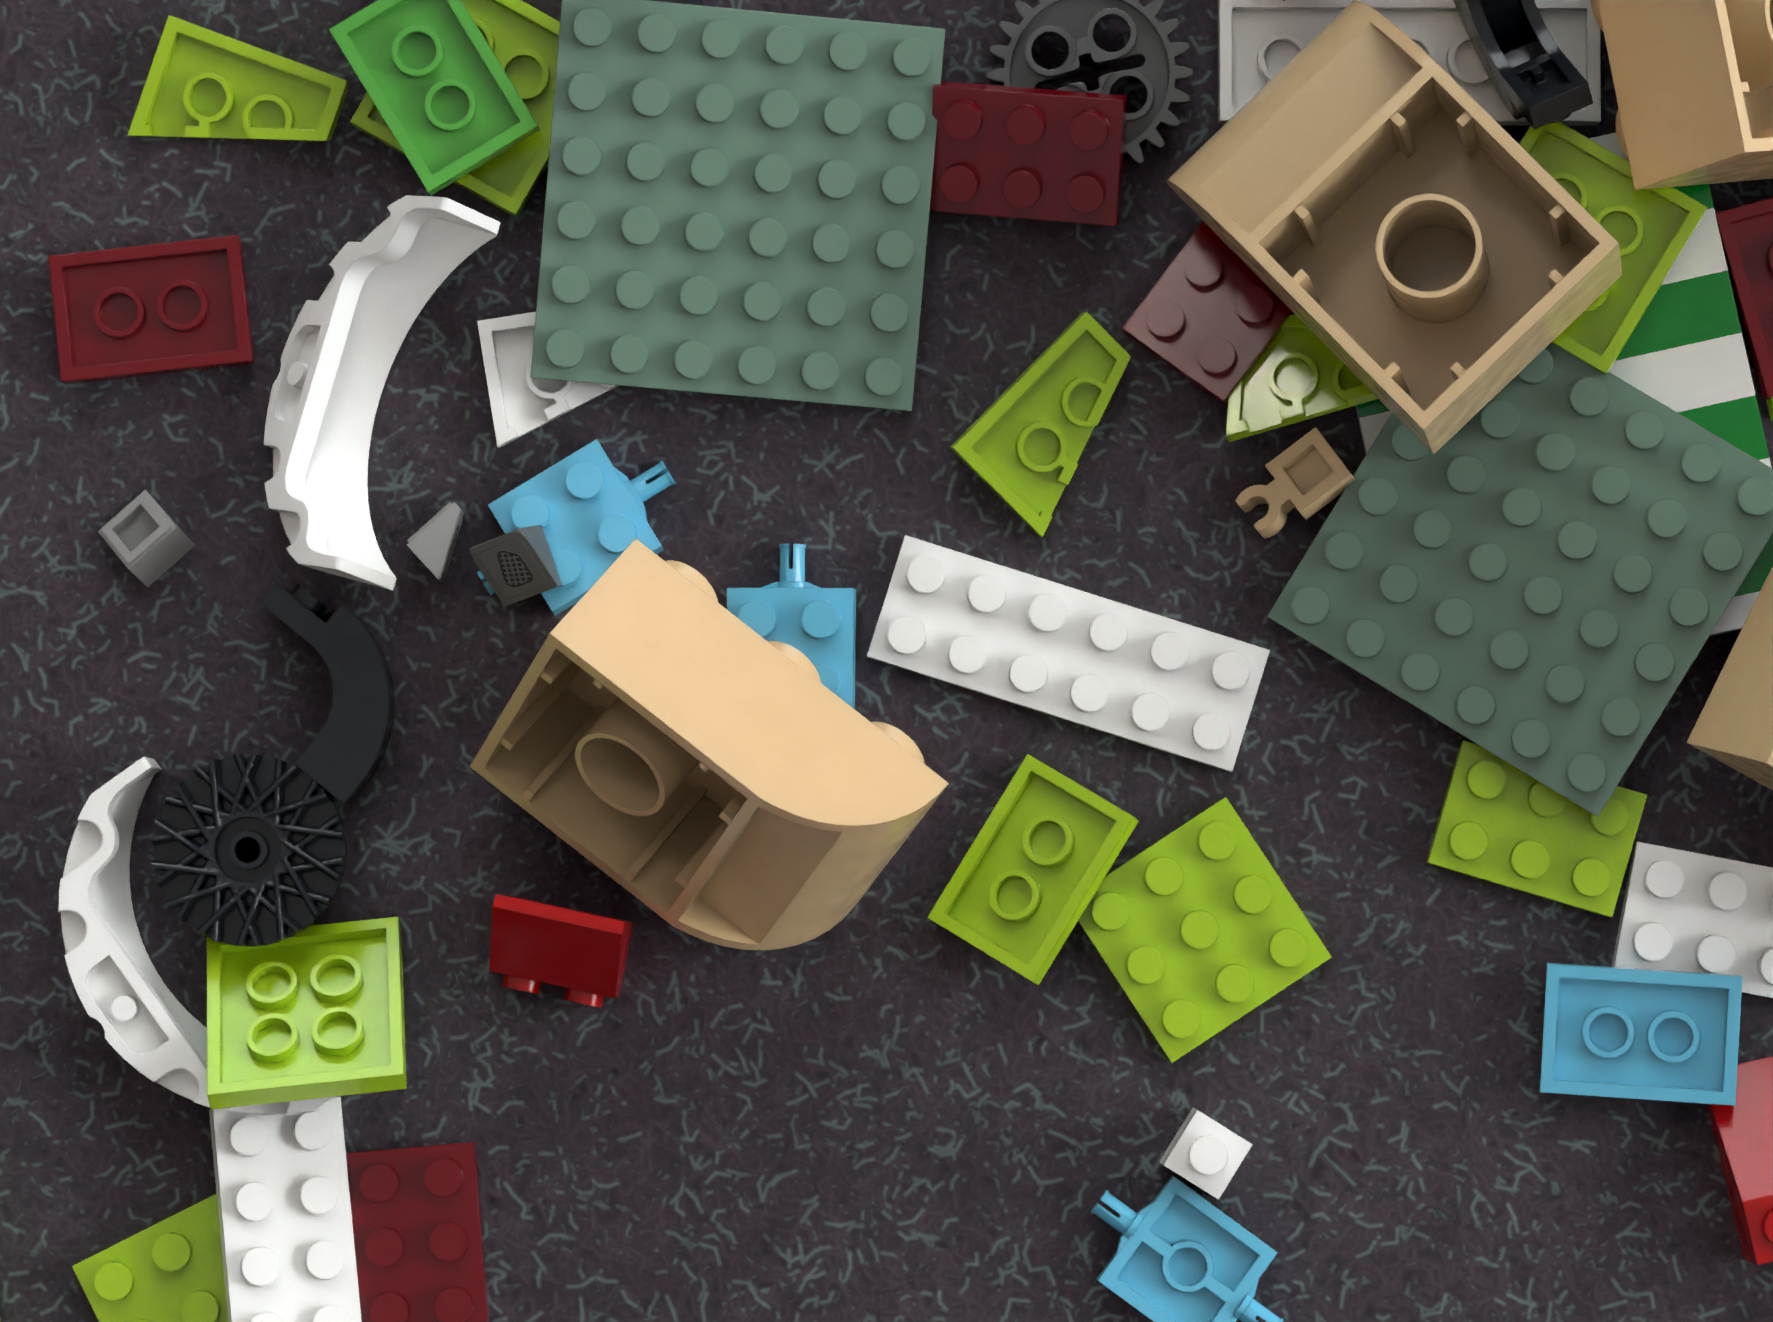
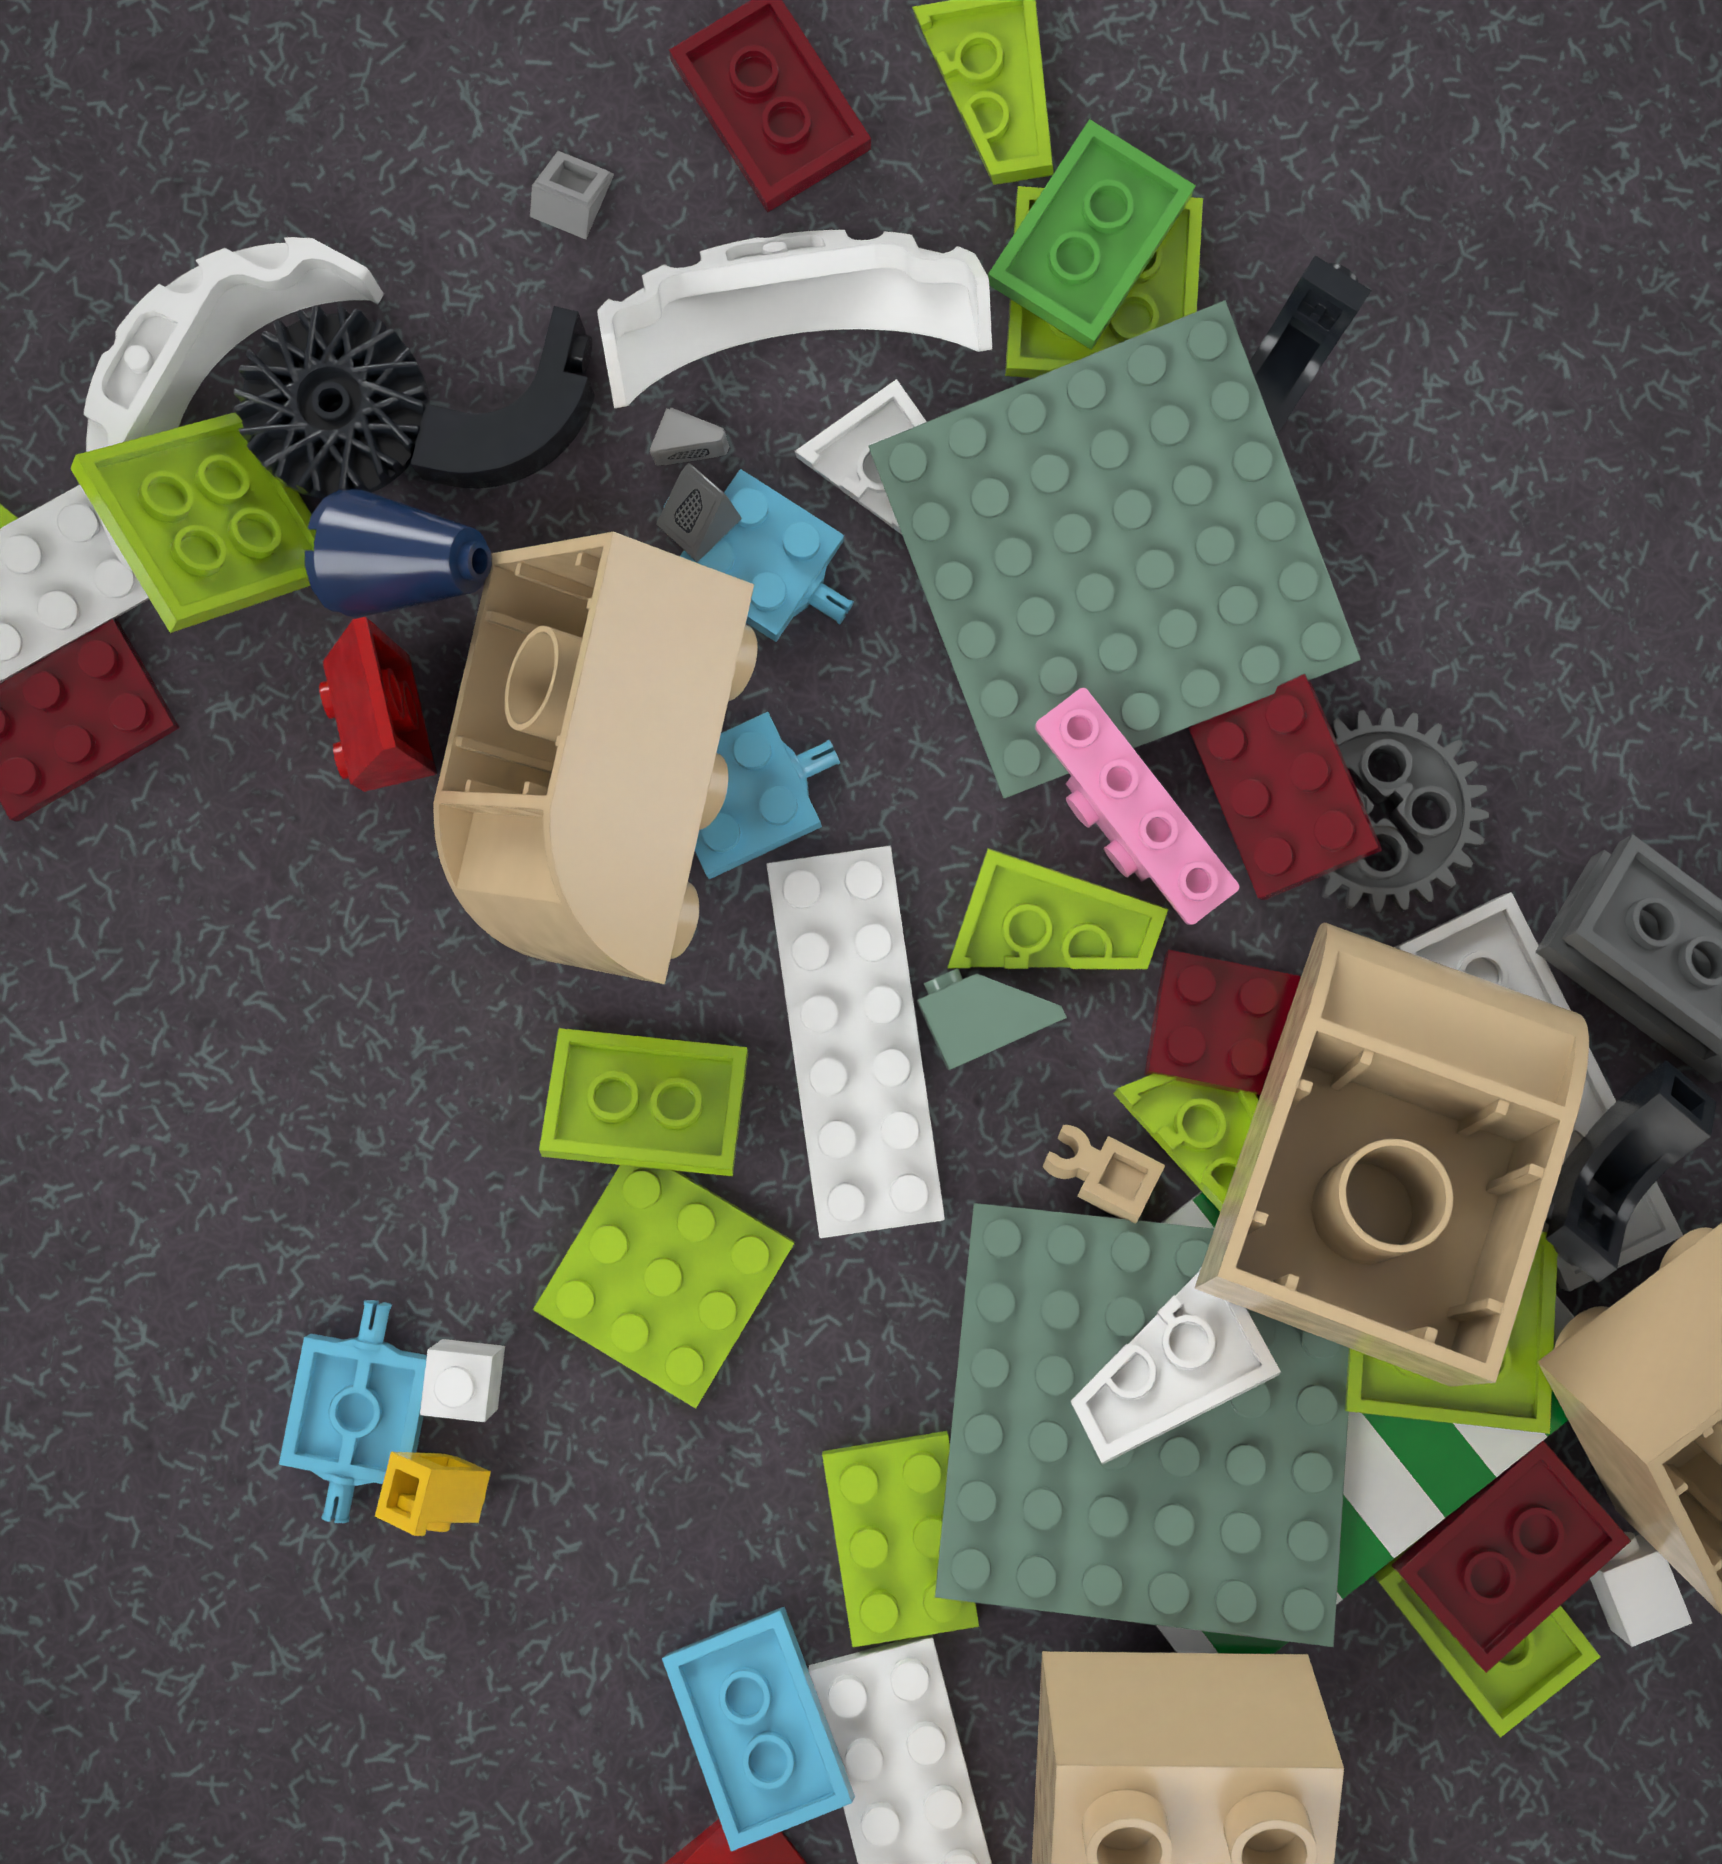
camera: 65 degrees right, 0 degrees up
(426, 856) = (389, 555): none -> dark blue cone
(981, 299) = (1133, 809): none -> bright pink bracket
(1100, 528) = (980, 1015): none -> sand green slope
(1292, 1227) = (431, 1492): none -> yellow brick
(1498, 508) = (1175, 1369): none -> white wing

